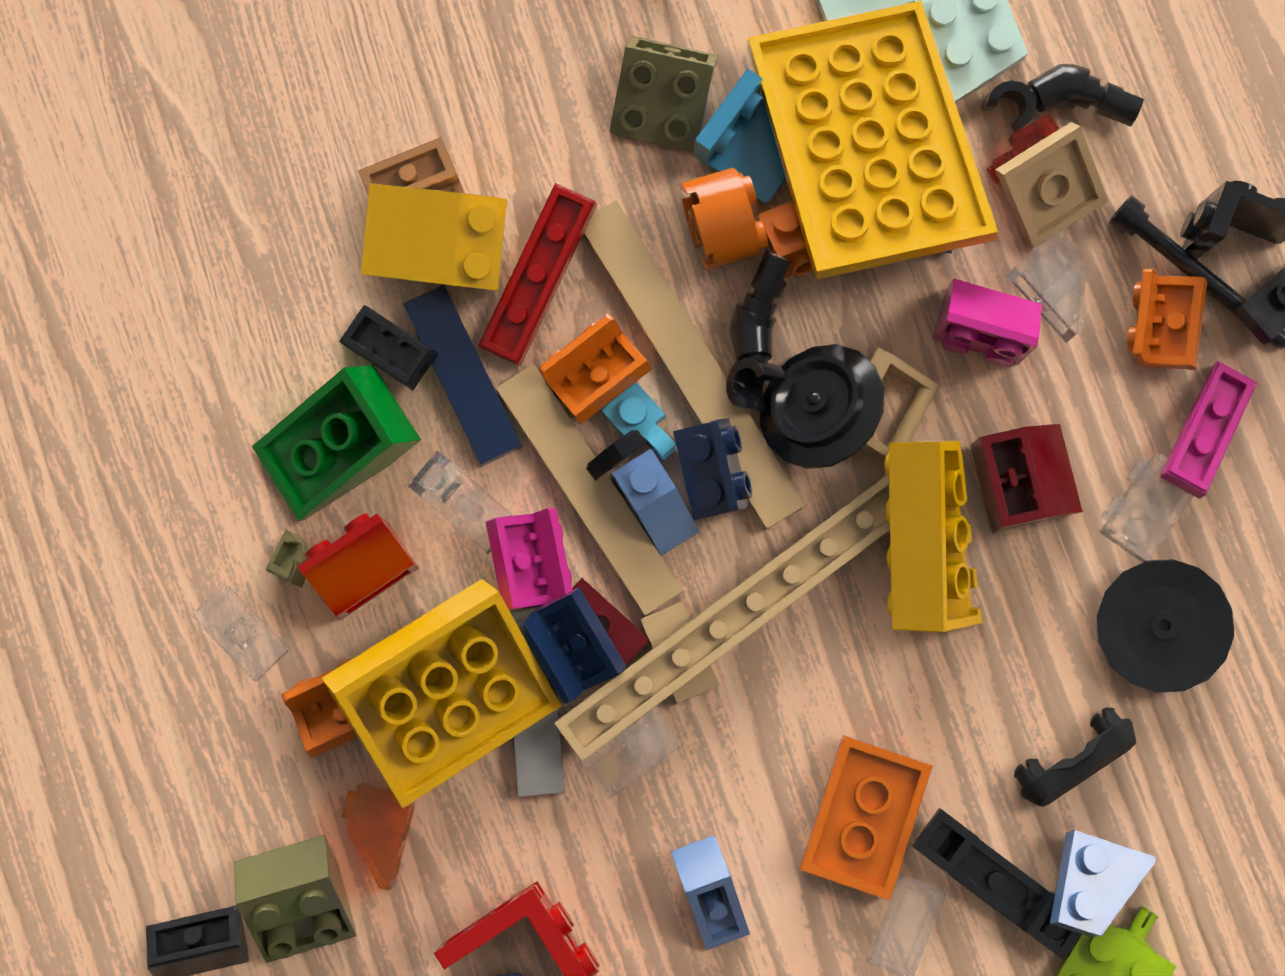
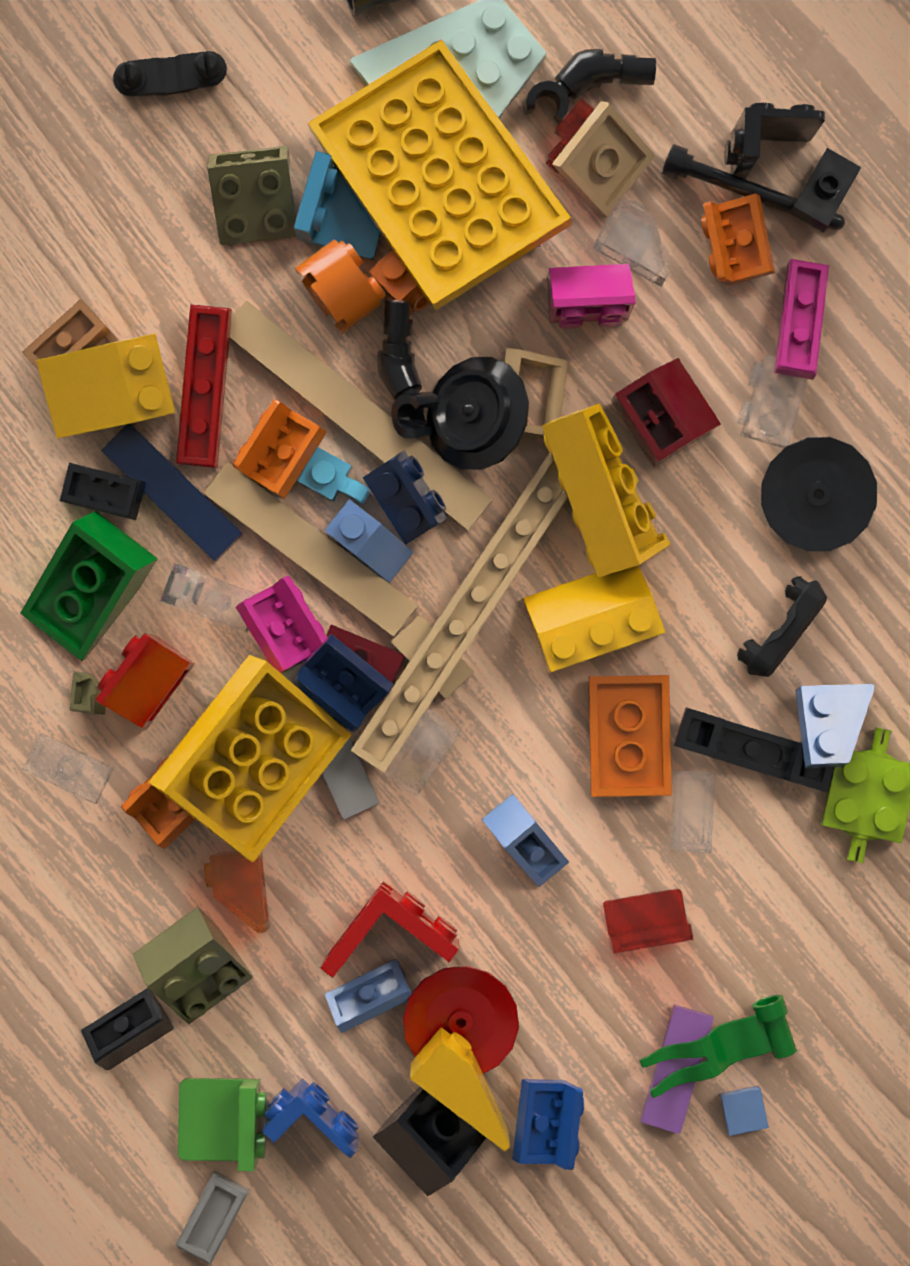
camera: 20 degrees left, 5 degrees up
(615, 454) = (322, 513): black tile -> none
(871, 672) = (592, 617): none -> yellow slope

